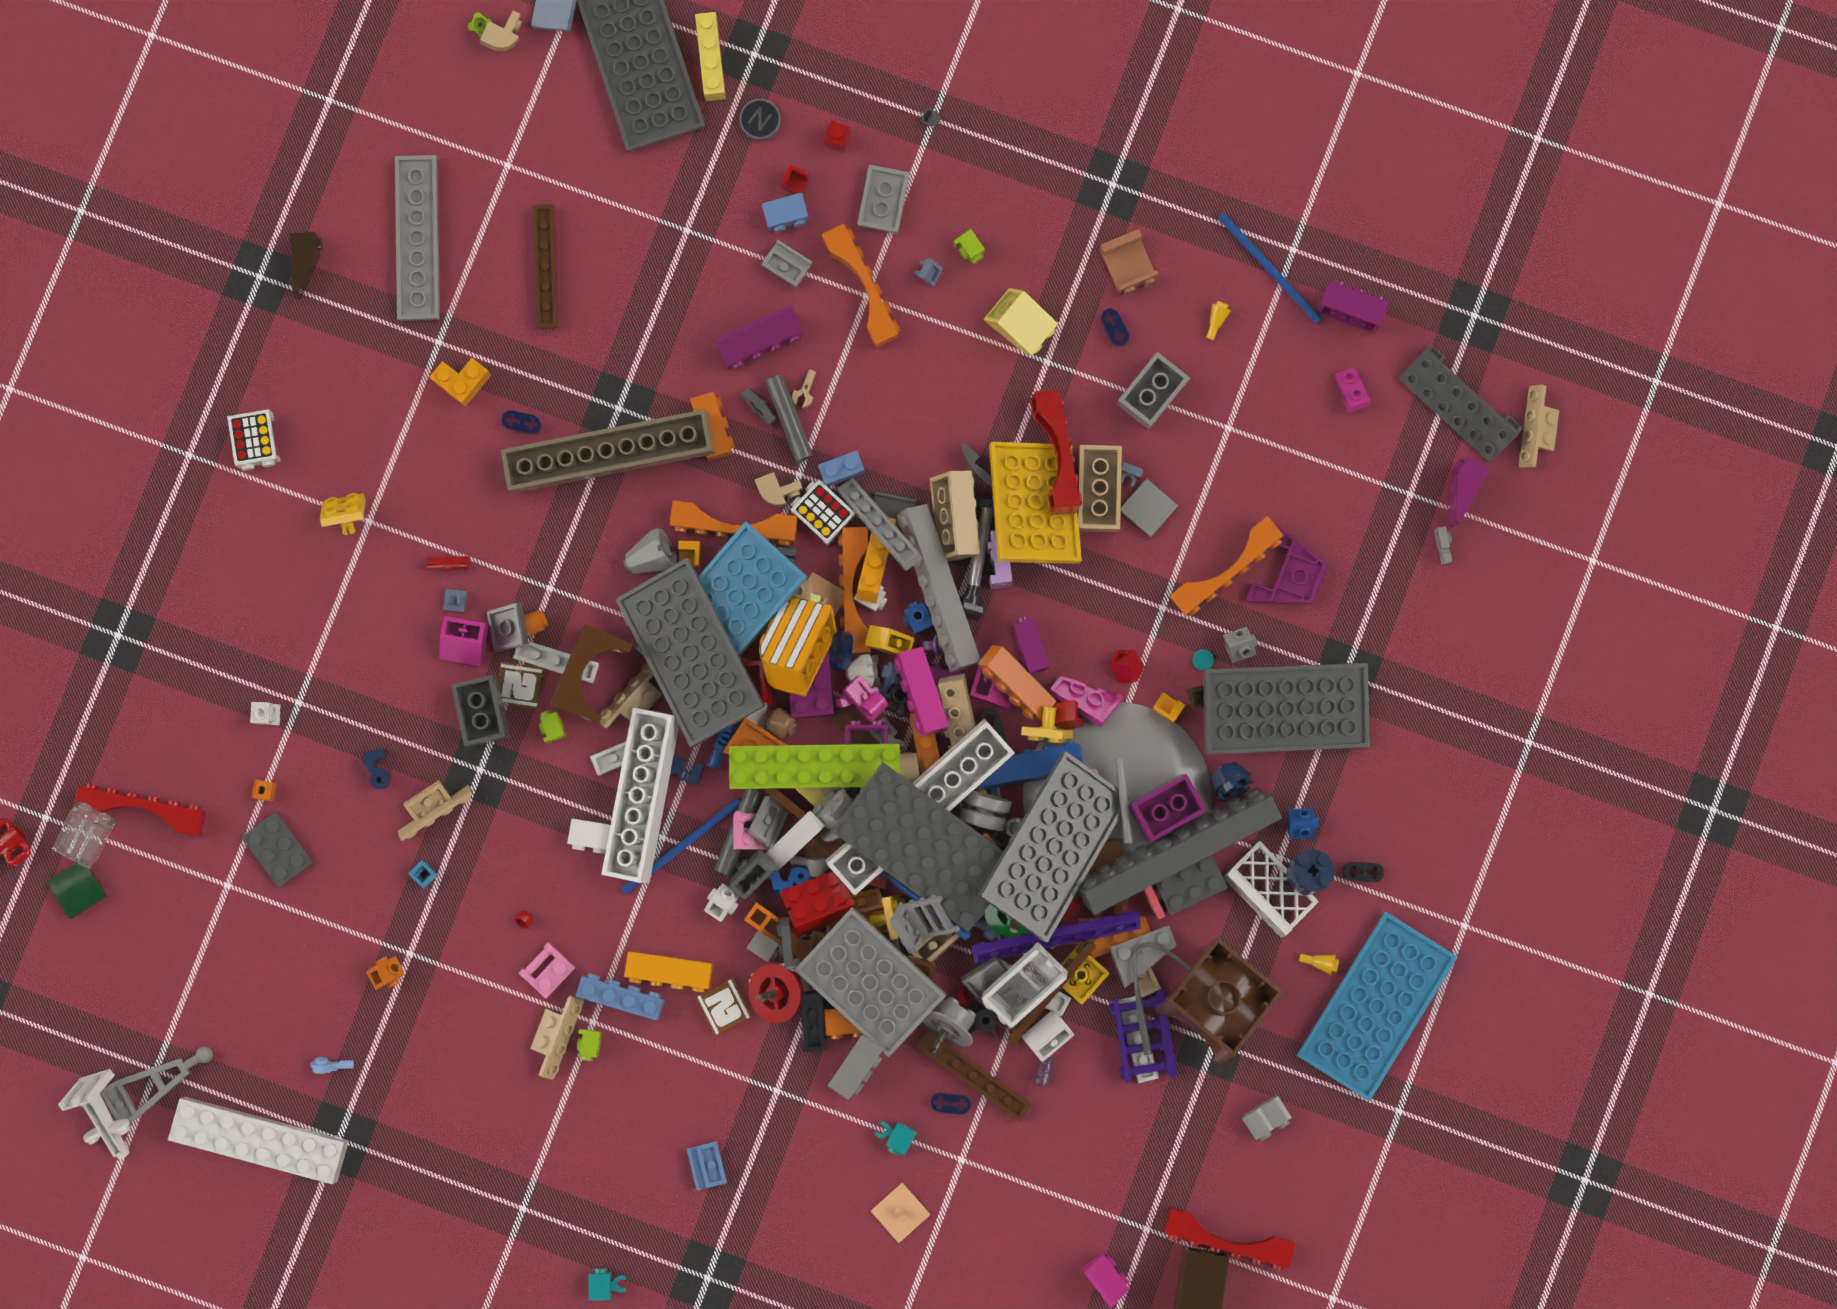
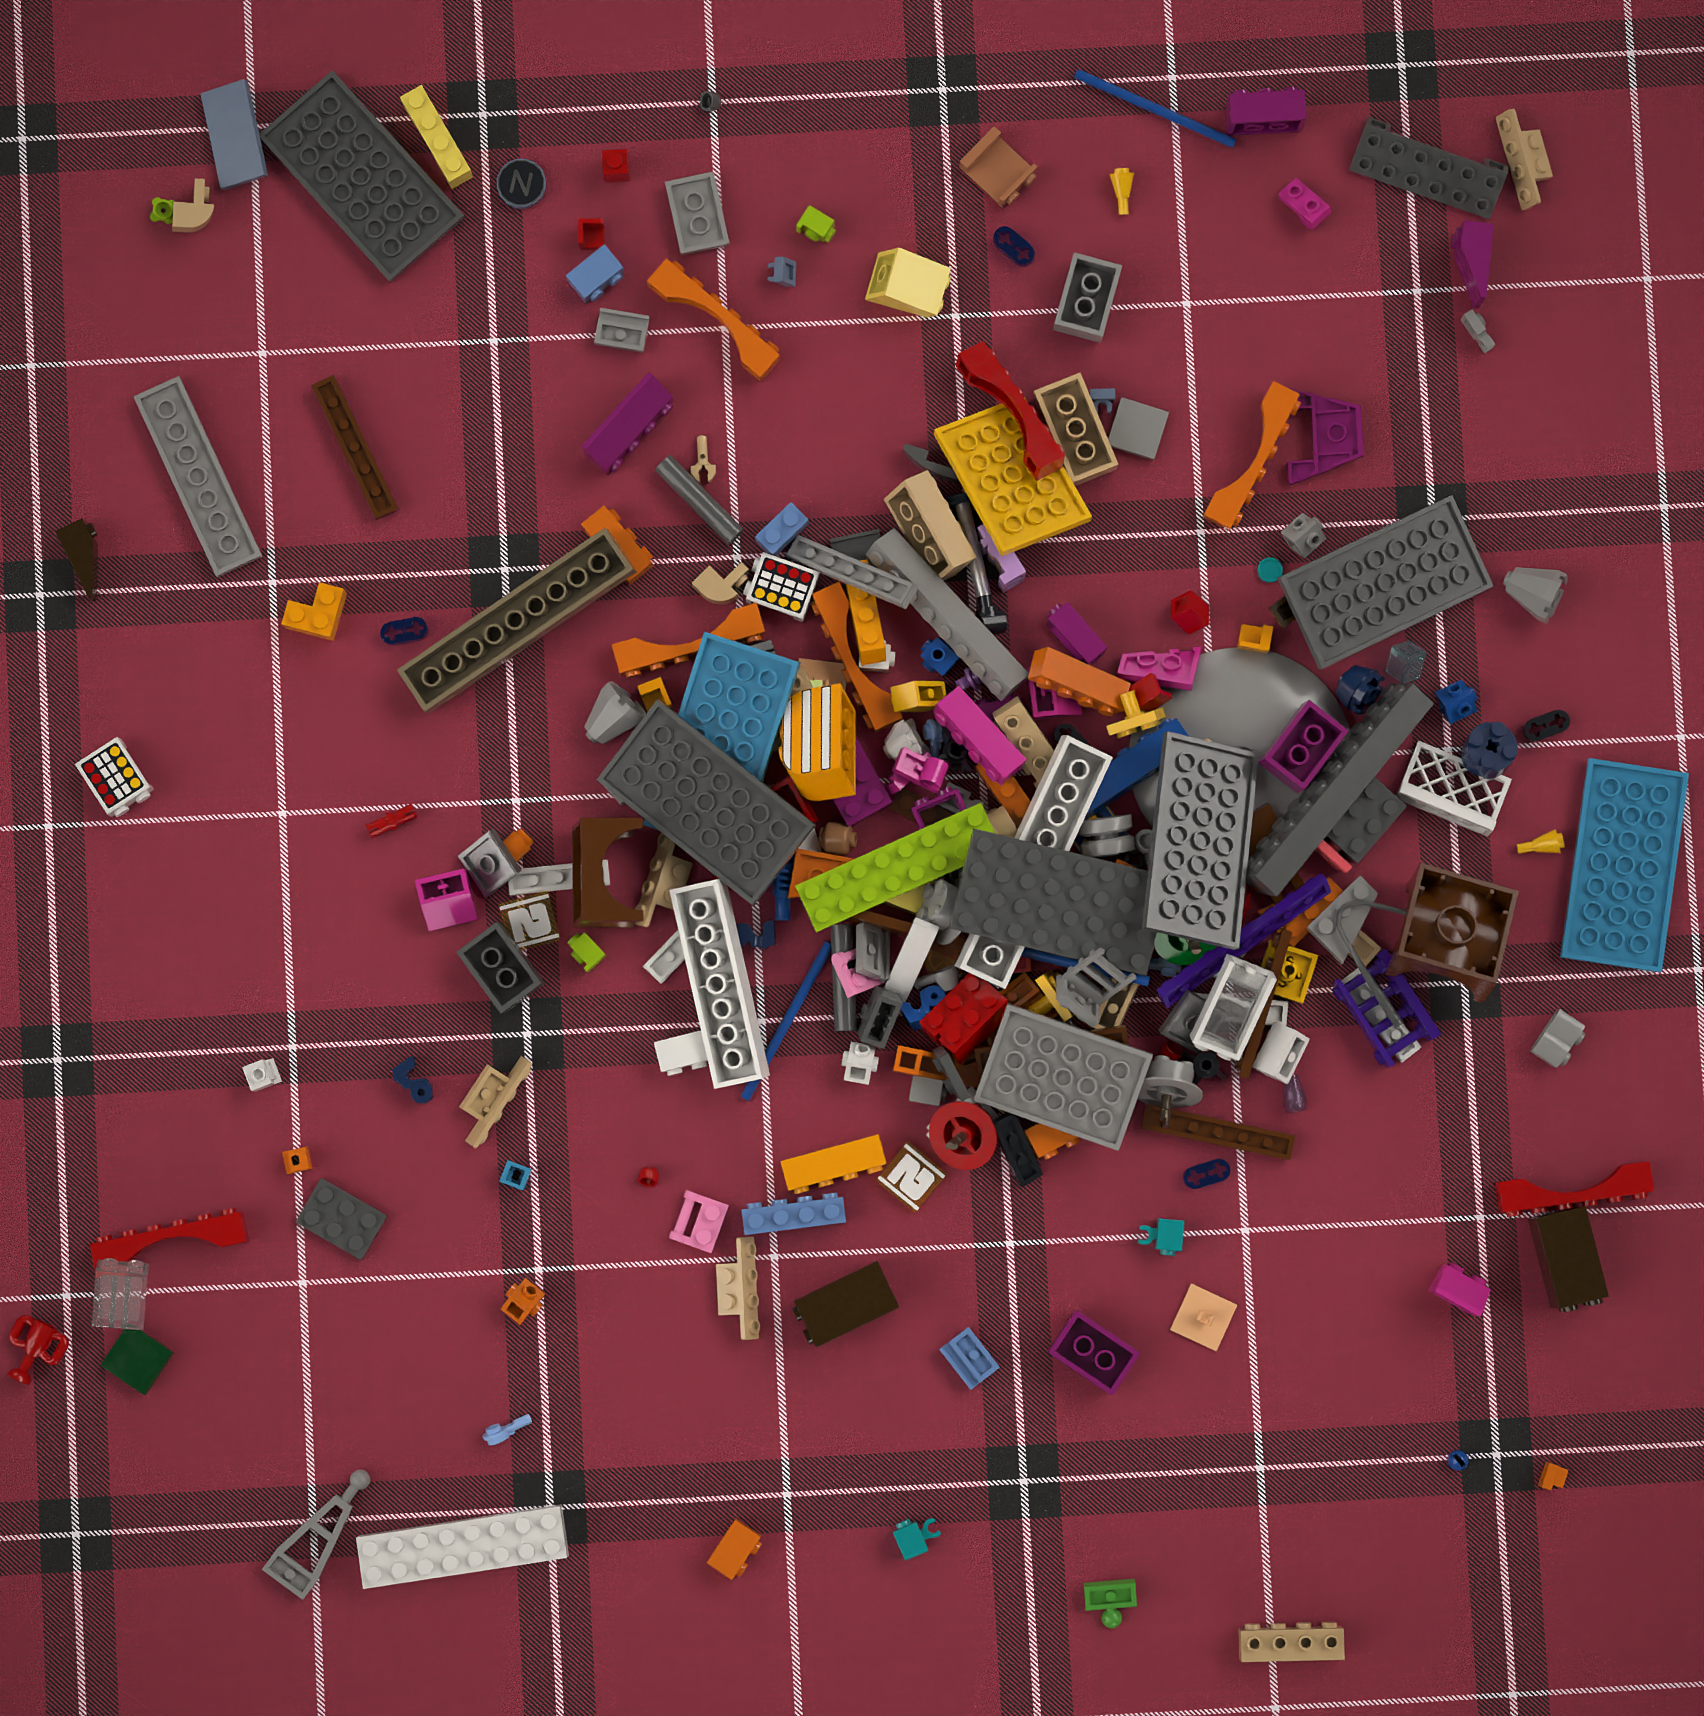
camera: 25 degrees left, 0 degrees up
(87, 1094) = (251, 1577): white piece -> none
(343, 511) = (250, 814): yellow plate -> none
(455, 600) = (417, 859): sand blue tile -> none
(463, 1233) = (734, 1549): none -> orange brick
(589, 1044) = (781, 1282): lime brick -> none
(629, 1083) = (845, 1304): none -> dark brown brick
(759, 406) = (660, 500): dark grey pin -> none
(803, 1203) = (1093, 1352): none -> magenta brick
(841, 650) = (870, 729): clear blue beam -> none
(856, 1068) = (1087, 1178): light grey brick -> none
(1124, 804) = (1253, 759): light grey bar -> none
(1276, 776) = (1406, 661): none -> clear light blue panel
(1401, 764) = (1536, 590): none -> light grey cone

